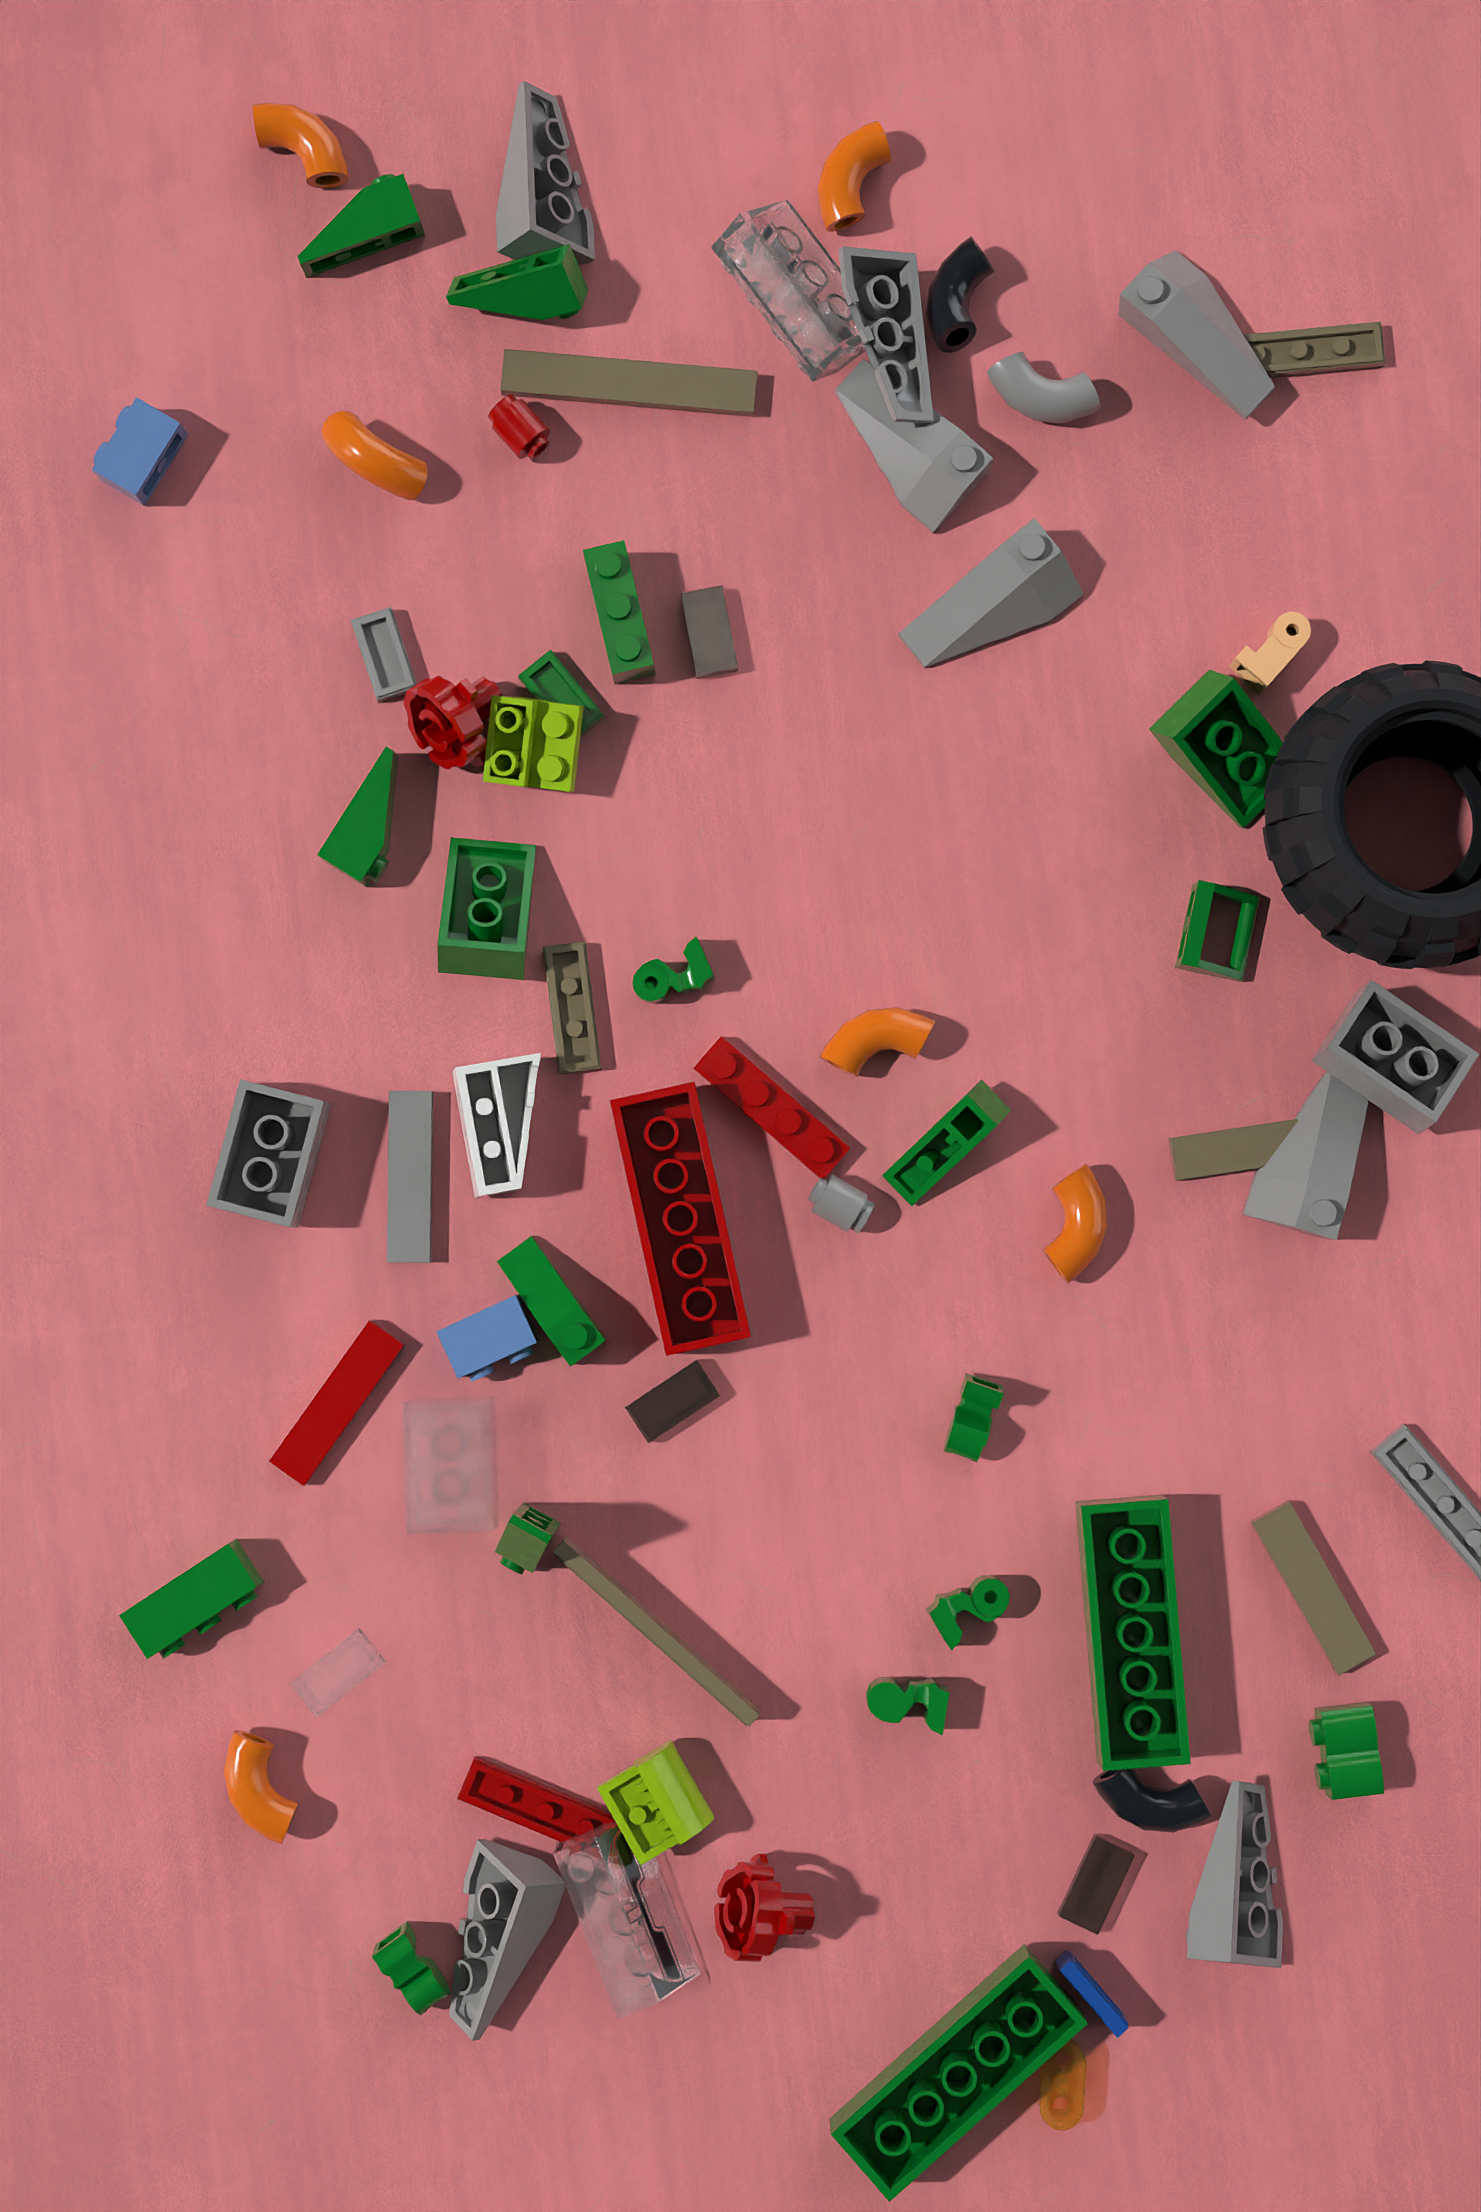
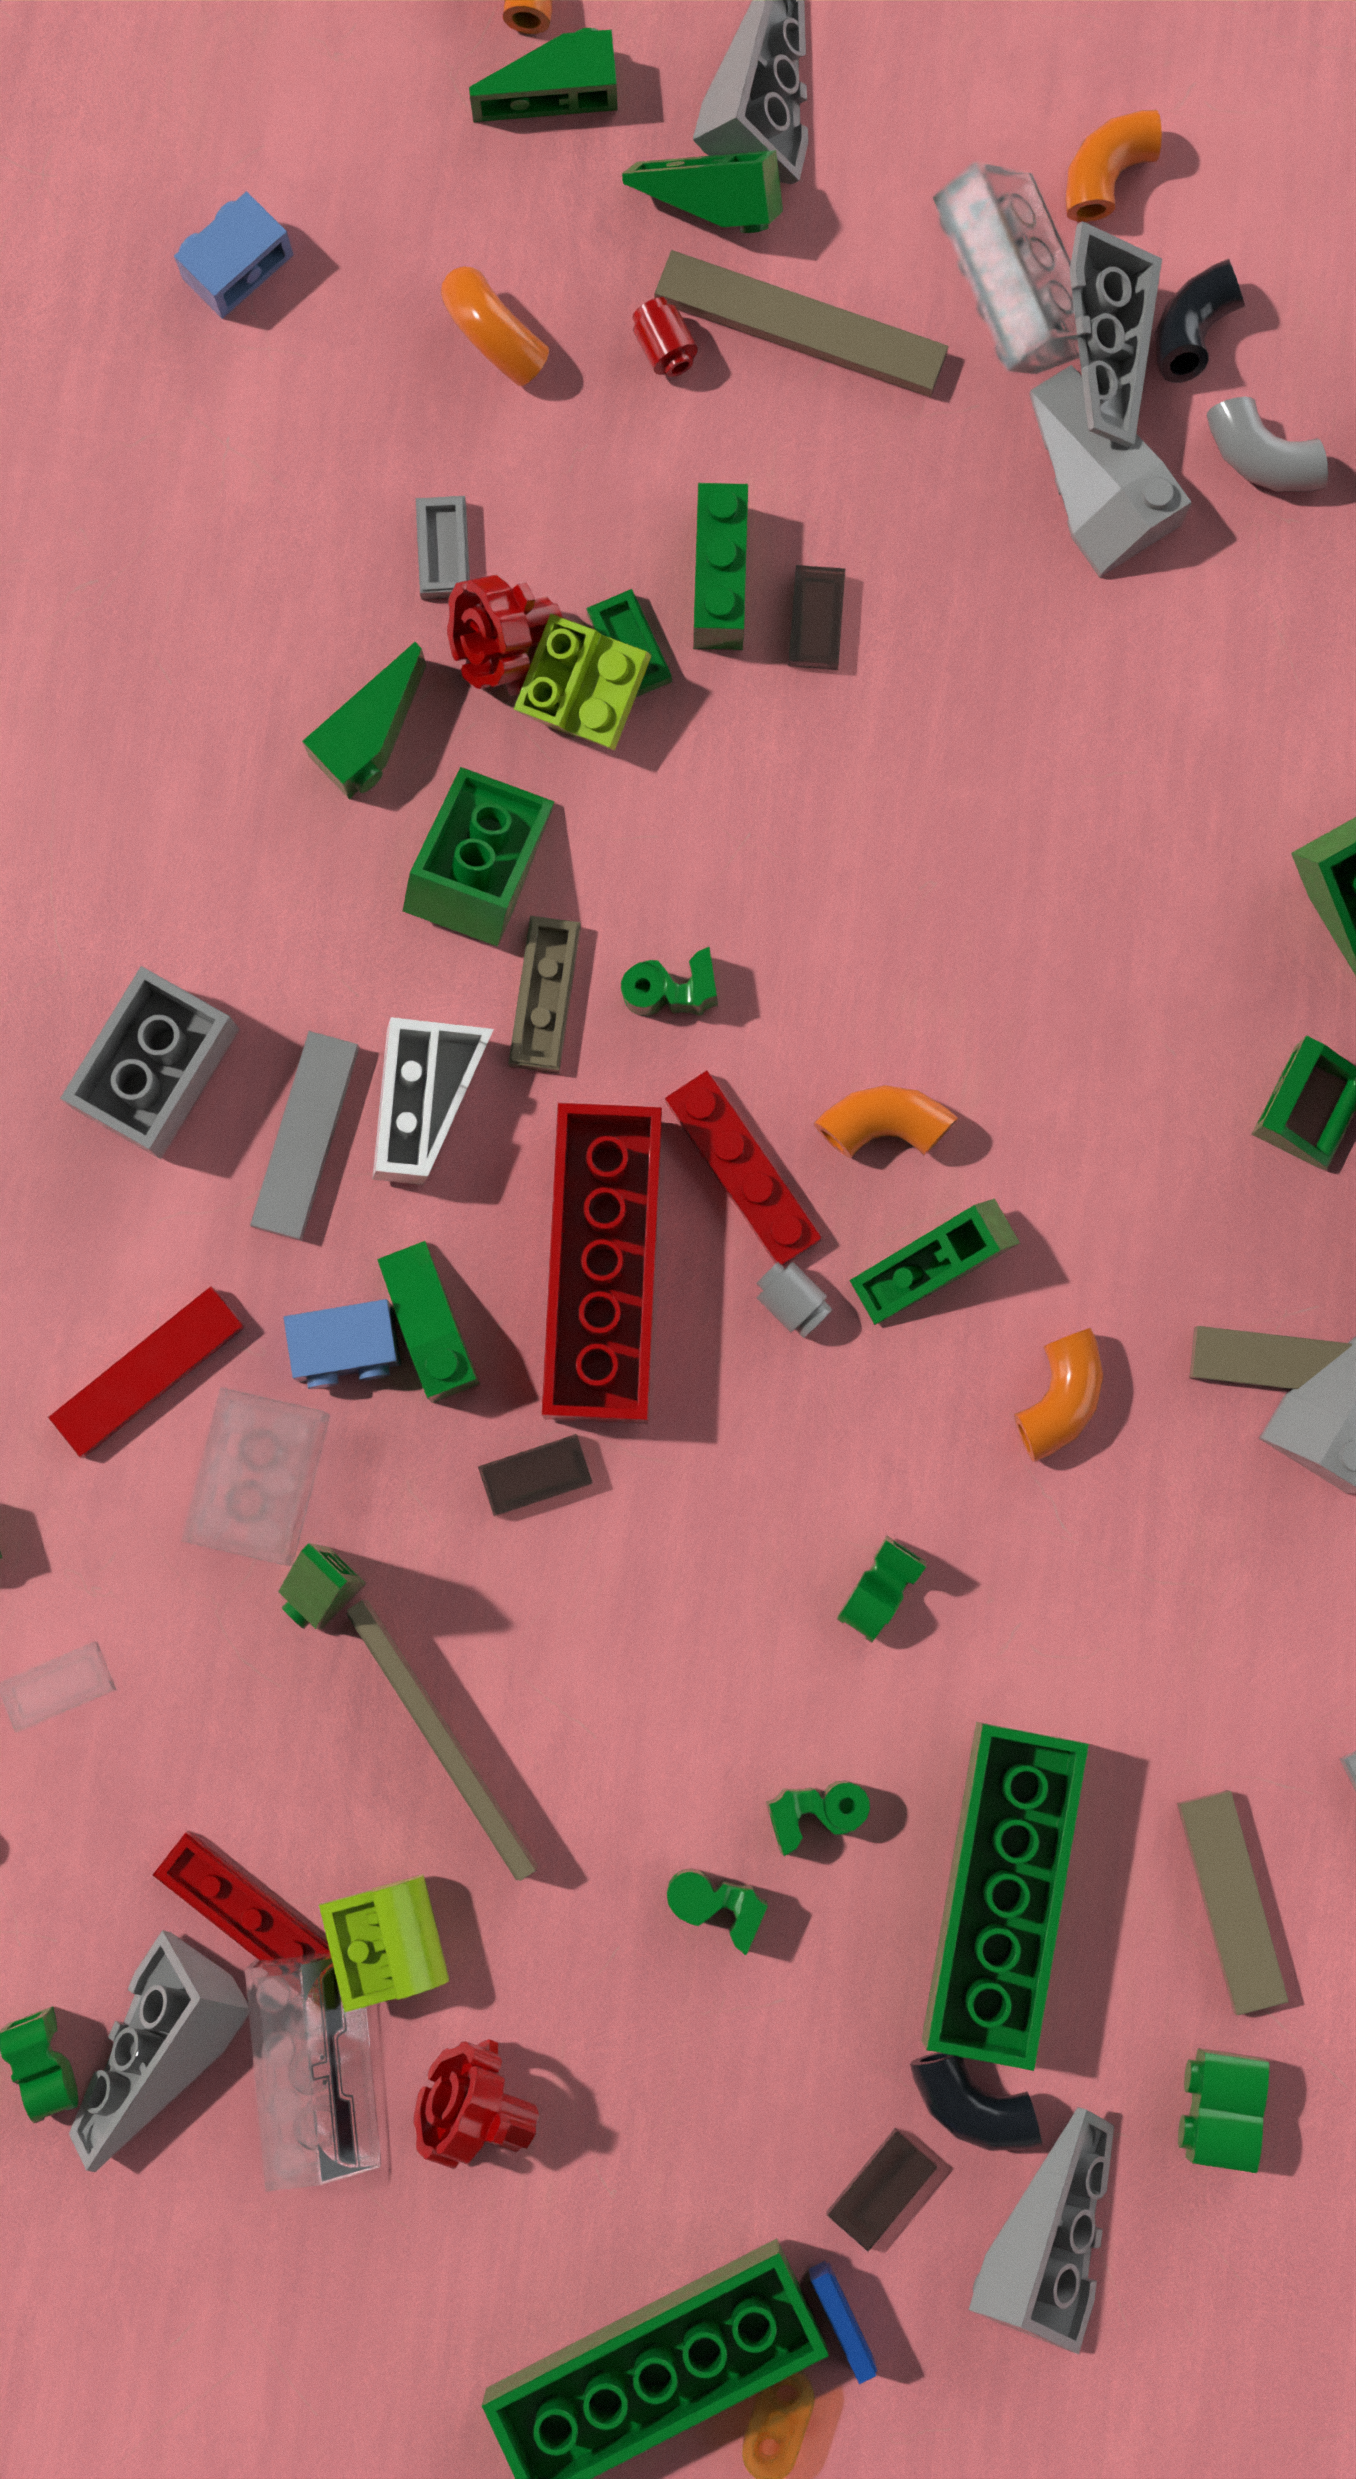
camera: 10 degrees right, 5 degrees down
(1008, 592) = (1168, 659): light grey wedge -> none

